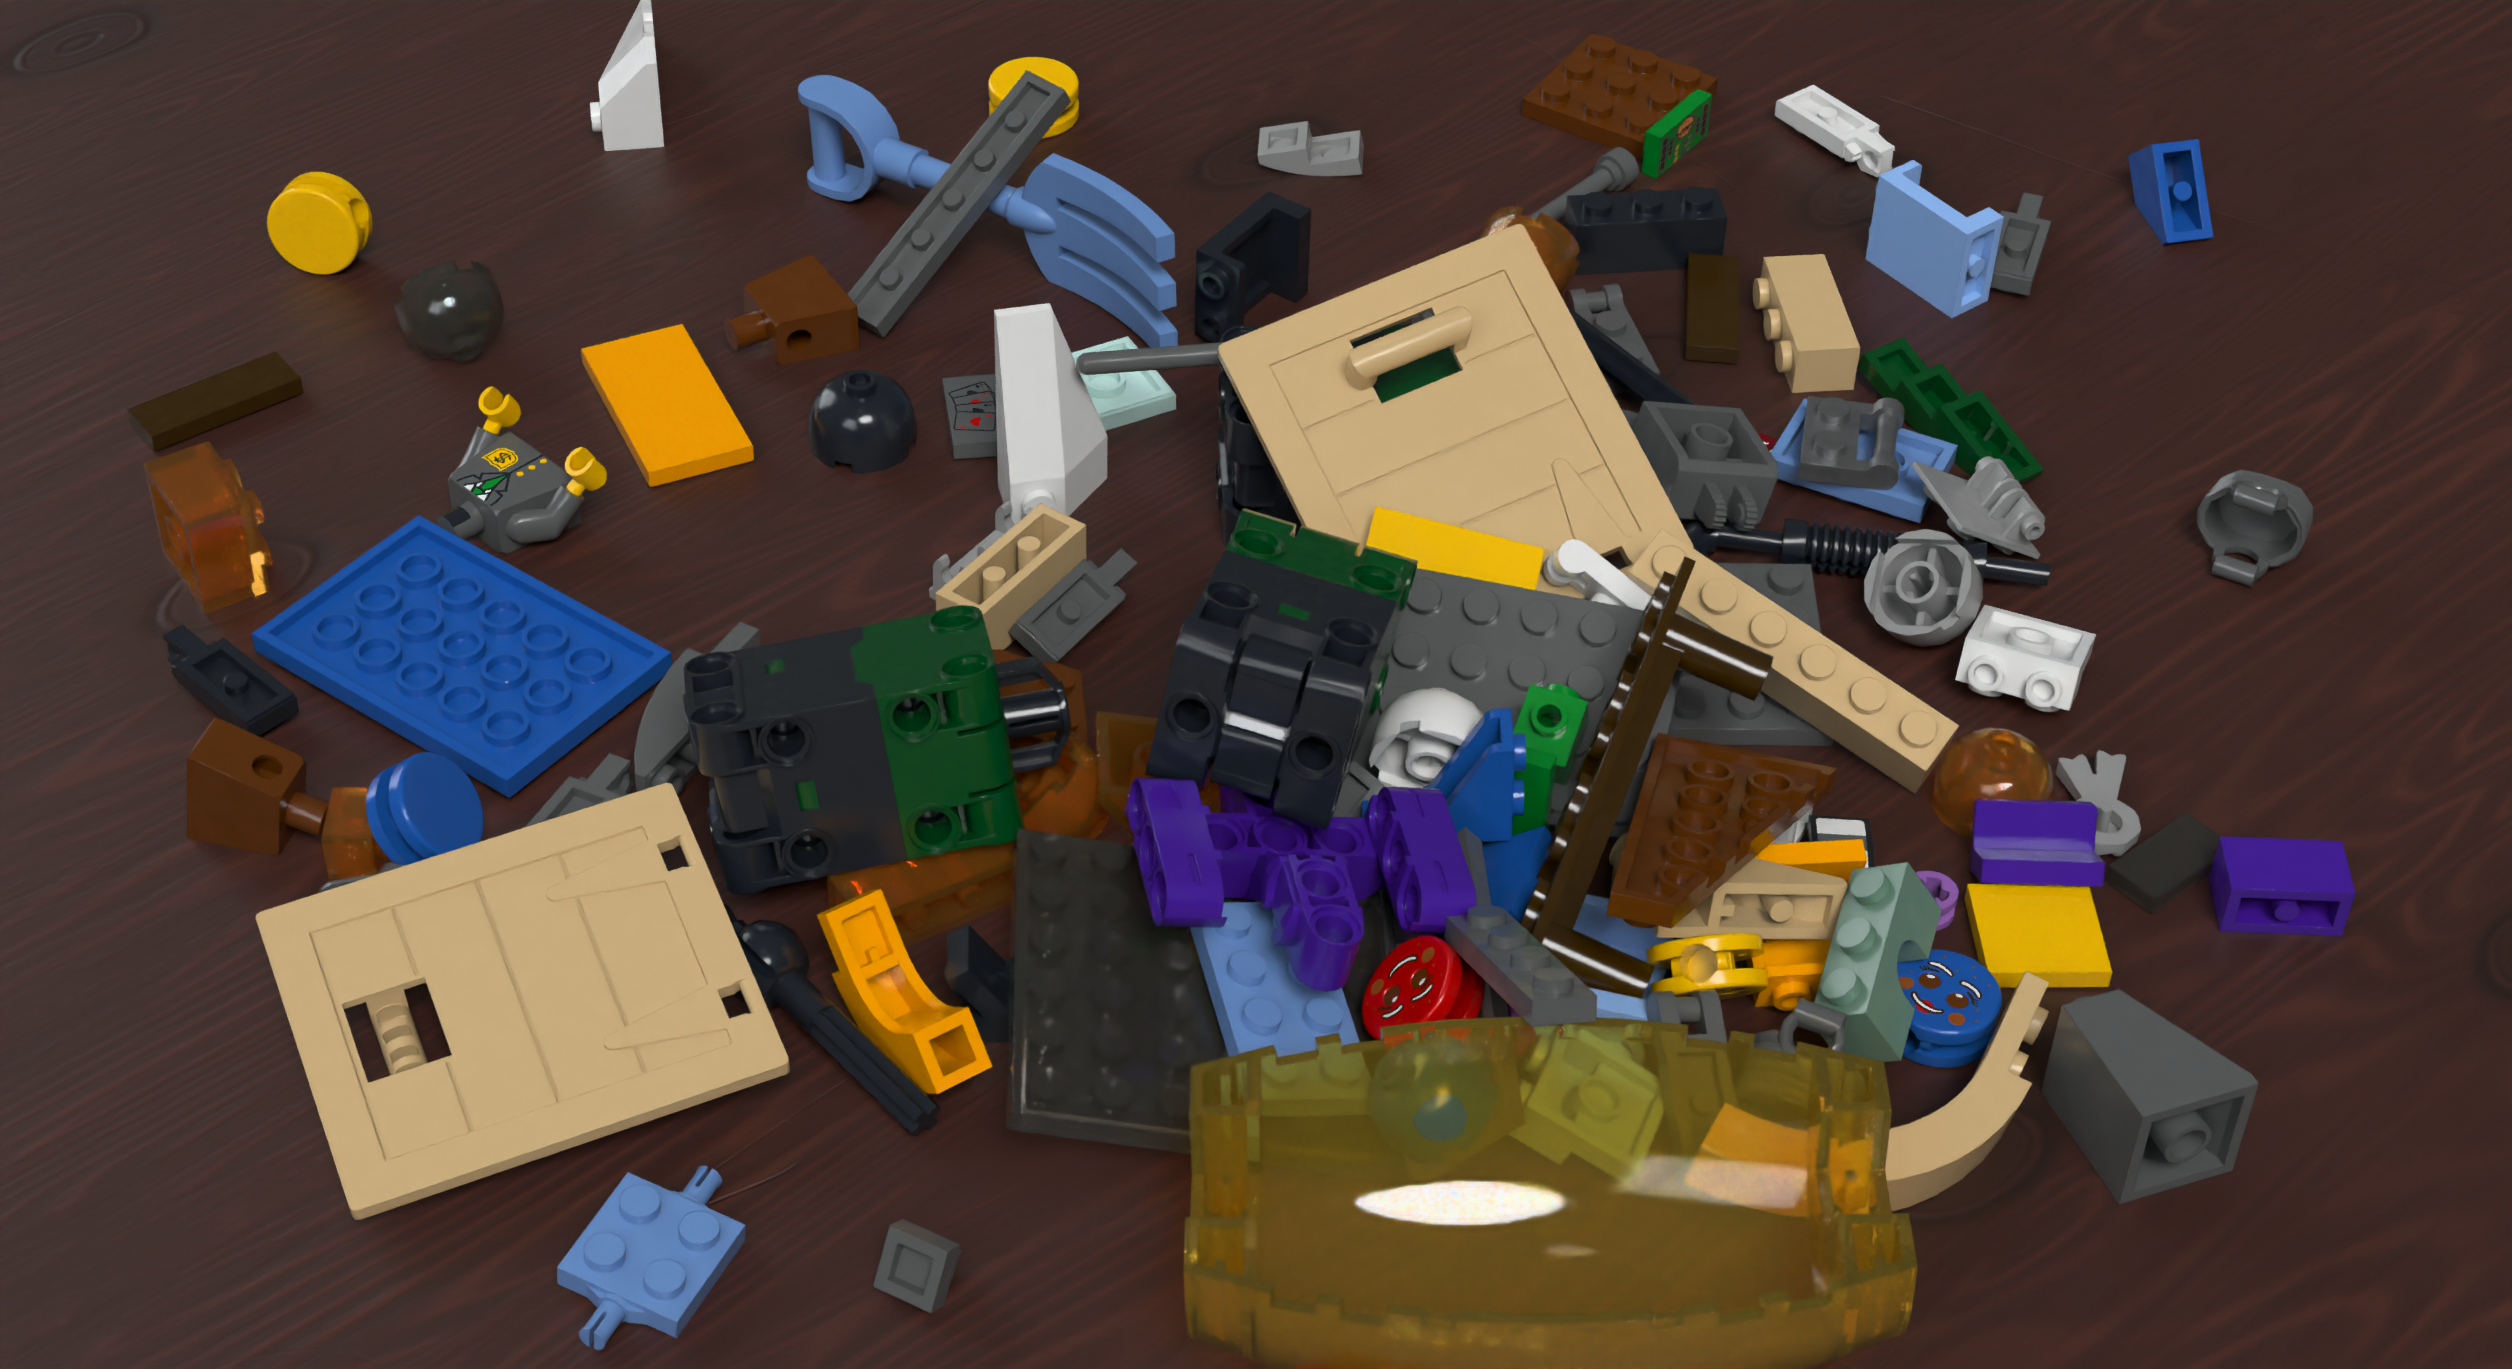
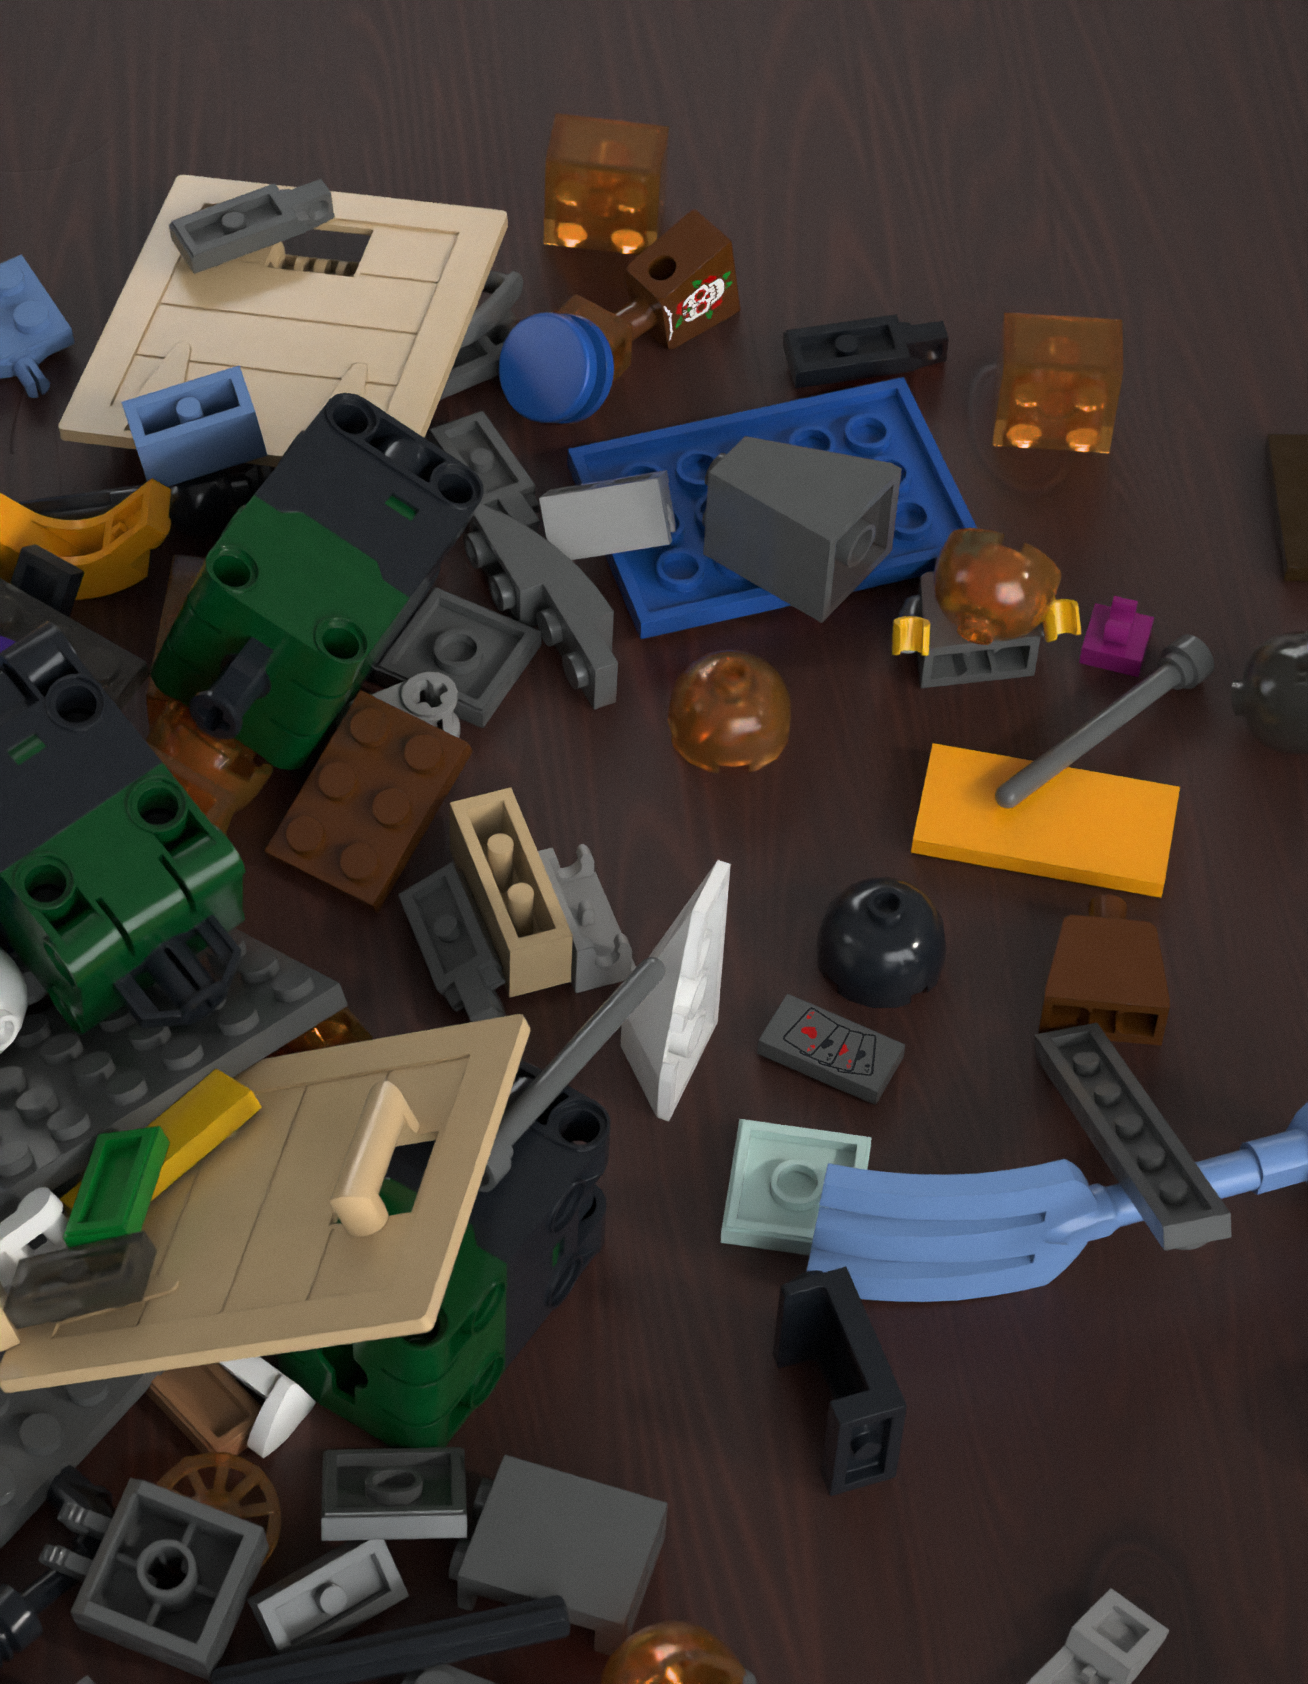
camera: 125 degrees right, 10 degrees up
(156, 886) = (605, 184): none -> clear orange brick
(419, 1069) = (250, 223): none -> dark grey hinge
(444, 436) = (1117, 637): none -> magenta tile
(453, 389) = (1181, 666): none -> dark grey piece
(519, 420) = (992, 588): none -> clear orange cylinder
(522, 553) = (800, 520): none -> dark grey slope
(575, 700) = (609, 515): none -> light grey hinge
(711, 580) = (729, 711): none -> clear orange cylinder
(755, 899) = (195, 427): none -> medium blue brick
(1514, 535) = (117, 1185): none -> green tile
(1598, 510) = (80, 1280): none -> clear smoke plate

